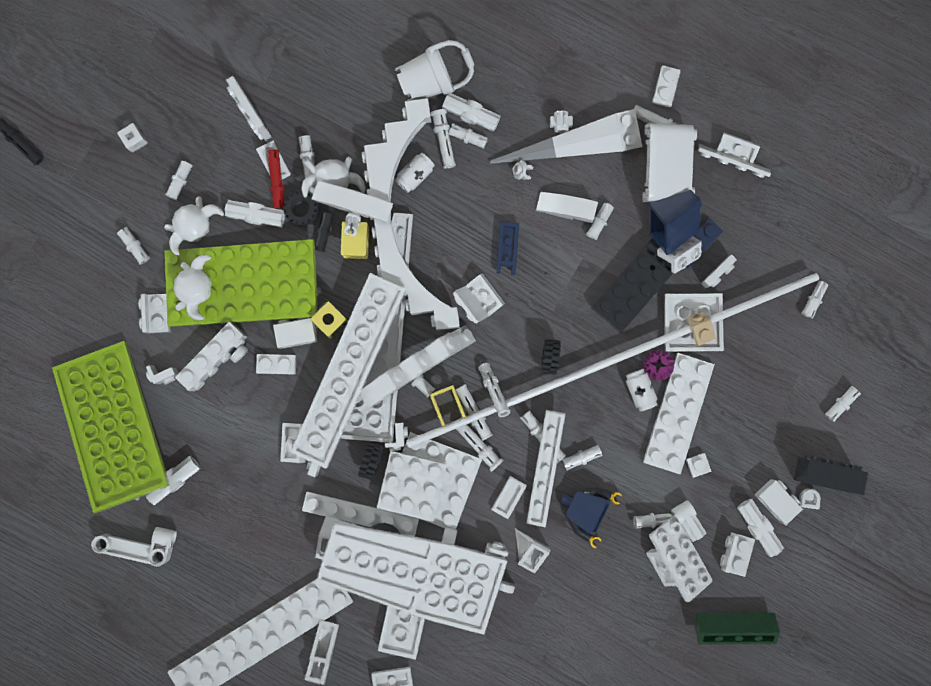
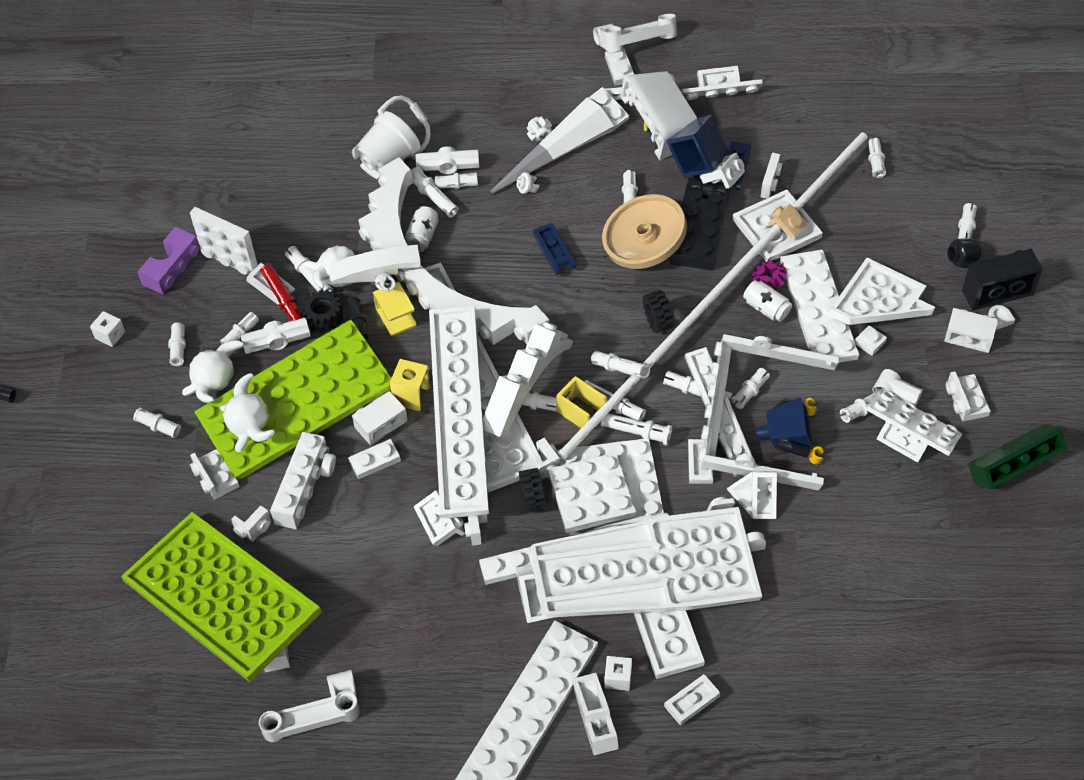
camera: 30 degrees left, 30 degrees down
(176, 477) = (322, 626): white piece -> none
(195, 106) = (161, 274): none -> medium lavender arch
(230, 193) = (242, 327): none -> white axle
(357, 629) = (618, 673): none -> white piece
(478, 299) = (555, 297): white bracket -> none
(537, 472) = (744, 464): none -> white piece
(567, 206) = (590, 190): white slope -> none
(584, 274) = (644, 231): none -> tan dish
(676, 60) = (614, 37): none -> white piece
(728, 434) = (879, 295): none -> white wing
(760, 528) = (971, 360): white piece -> none
(821, 430) = (964, 251): none -> black head

